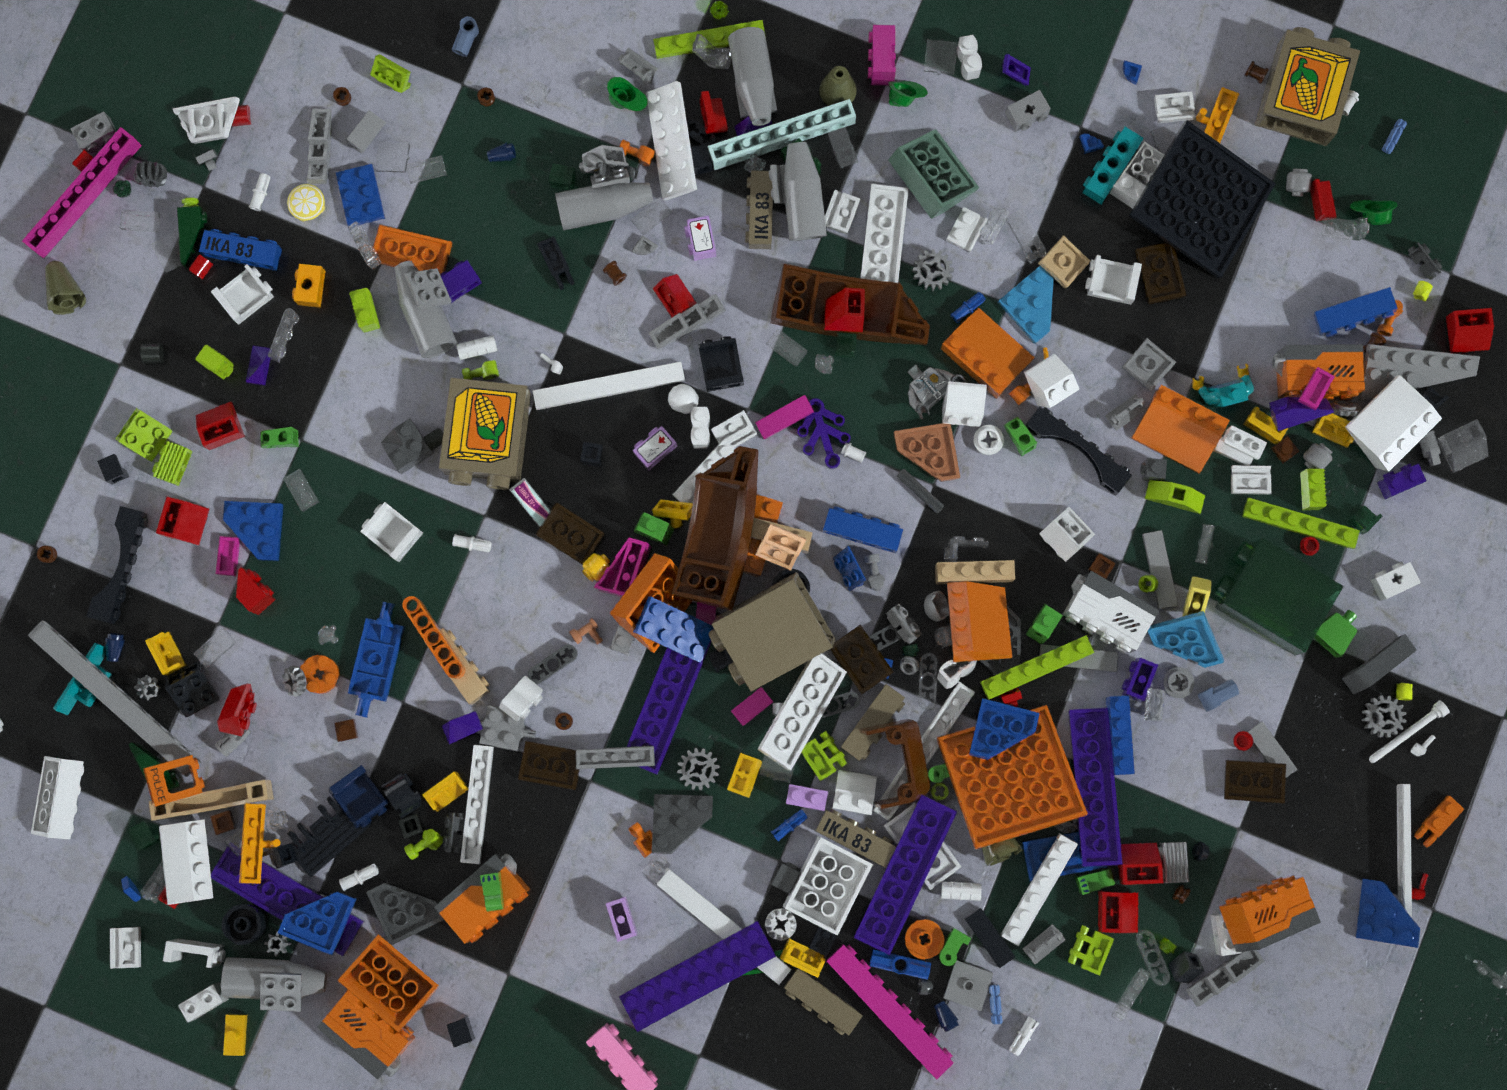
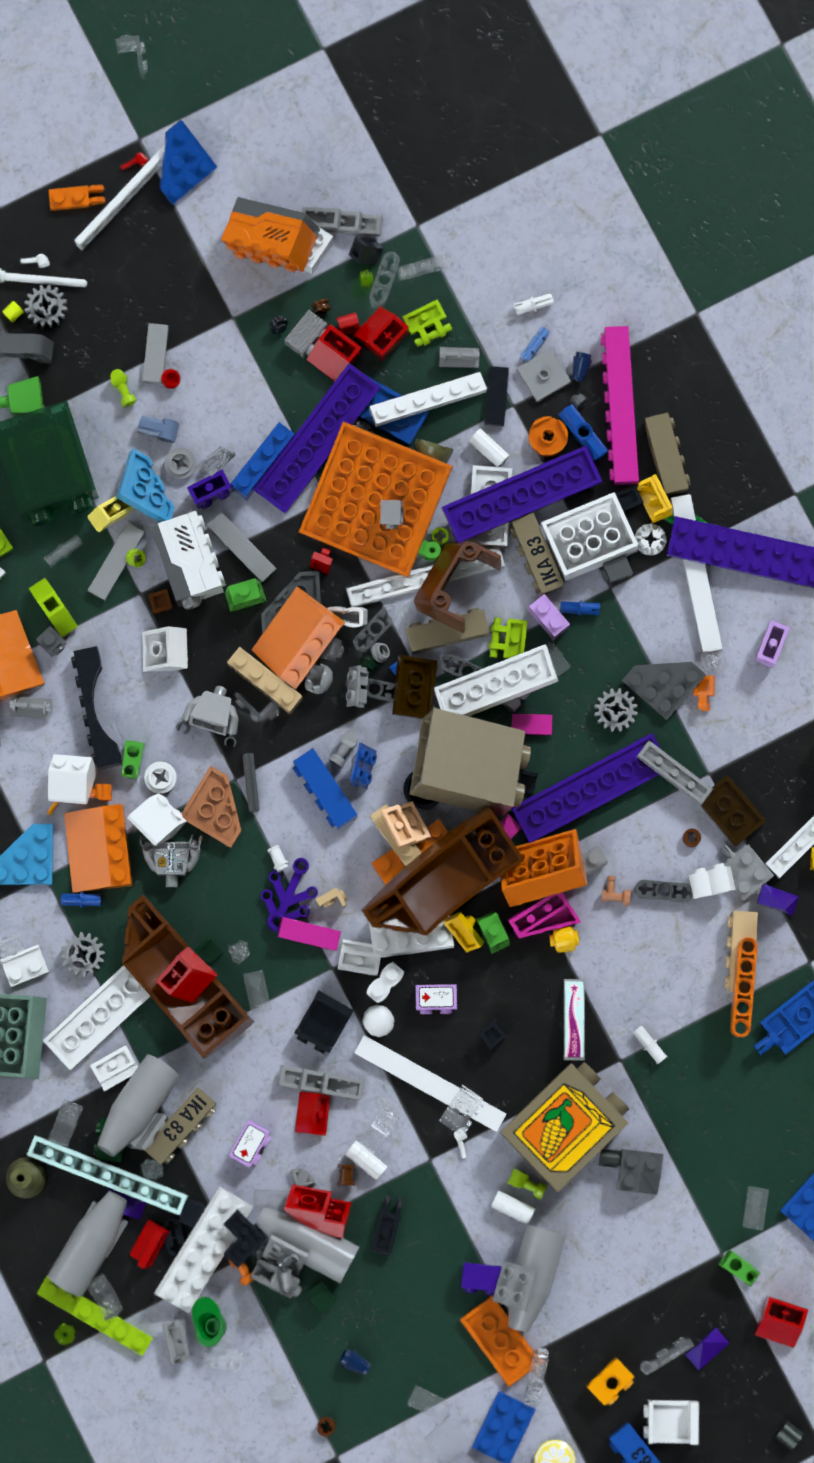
camera: 145 degrees left, 0 degrees up
(215, 362) = (742, 1377): lime brick -> none
(364, 310) = (580, 1319): lime brick -> none
(391, 531) = (708, 1110): white panel -> none
(569, 533) = (564, 983): dark brown plate -> none
(575, 391) = (451, 1116): none -> clear brick
(609, 294) = (366, 1160): none -> white axle
(613, 230) = (318, 1210): none -> red slope
(646, 170) = (247, 1236): none -> black plate
(674, 629) = (545, 831): plate -> none
(744, 775) = (583, 674): yellow hinge -> none
(792, 454) = (328, 898): none -> tan bracket
(854, 792) = (508, 590): white slope -> none
(952, 945) = (530, 413): bright green leg -> none
(989, 773) = (392, 513): none -> light grey brick
(991, 515) = (212, 713): none -> light grey torso
(1000, 728) = (352, 542): blue plate -> none
(1037, 667) = (281, 565): lime plate -> none
(1094, 881) = (379, 370): bright green leg -> none
(1149, 898) = (348, 323): none -> red brick
(1255, 781) = (190, 341): dark brown plate -> none
(1278, 706) = (120, 381): none -> lime leg

